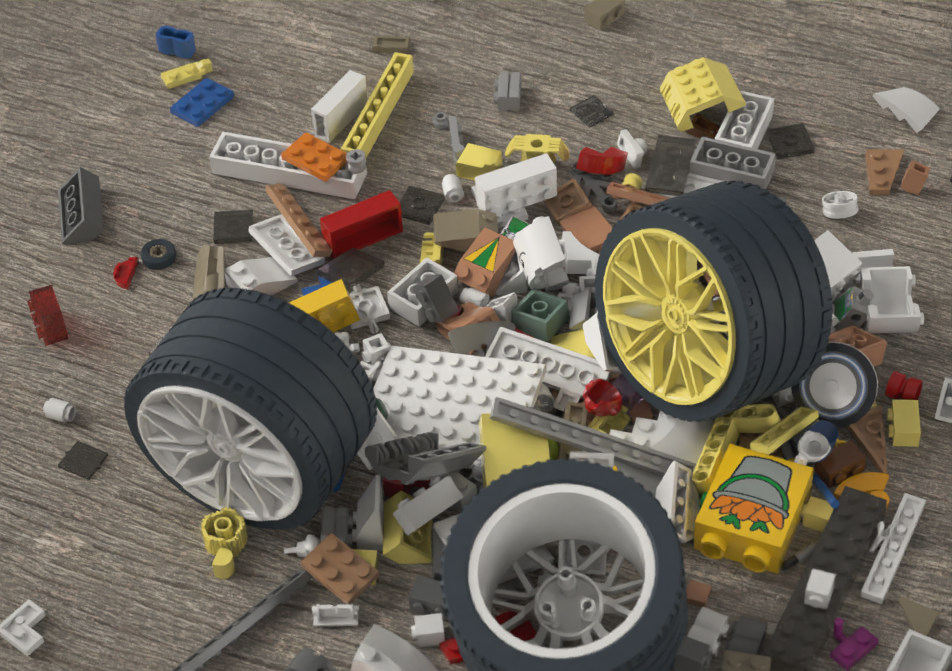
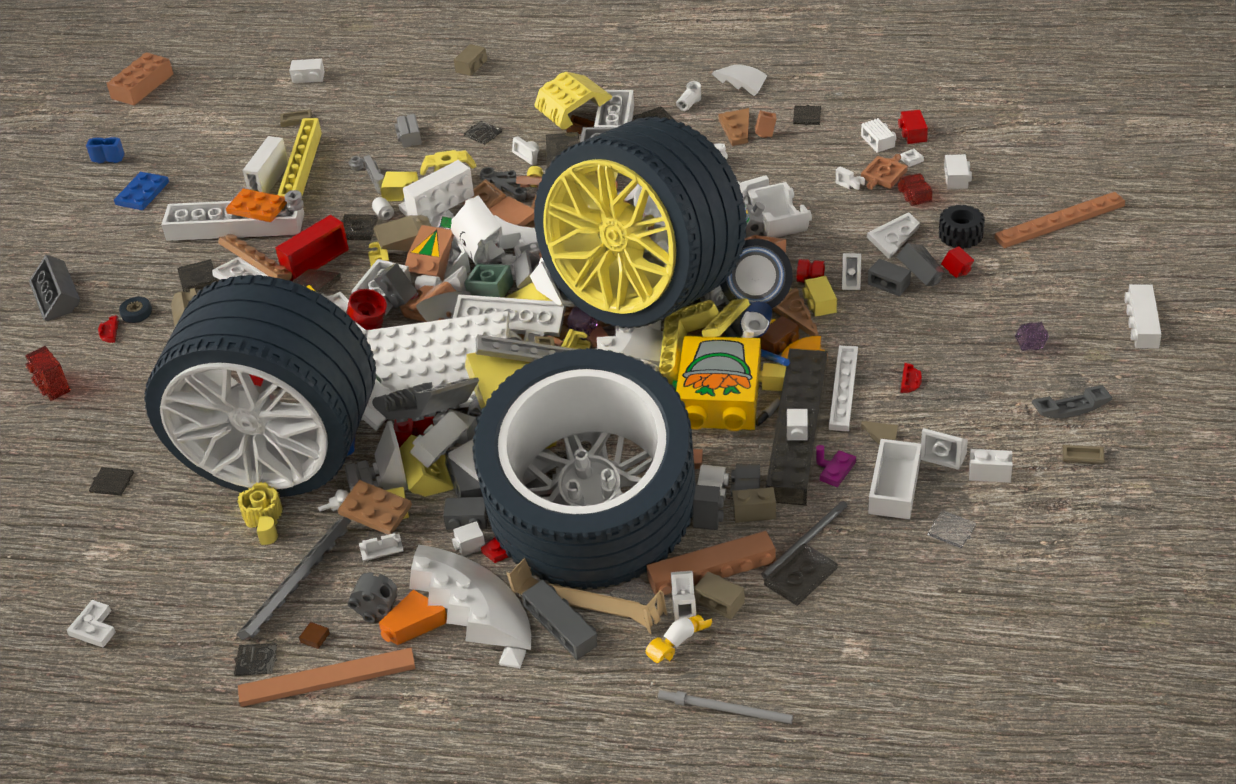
camera: 15 degrees left, 5 degrees down
(59, 410) = (78, 445): white brick -> none
(186, 73) = (121, 172): light yellow hinge -> none
(396, 320) = (367, 308): none -> red wheel
(602, 398) = (564, 327): red hair -> none
(609, 162) = (507, 163): red brick -> none
(841, 117) = (690, 96): none -> white piece
(882, 534) = (831, 378): white hand -> none

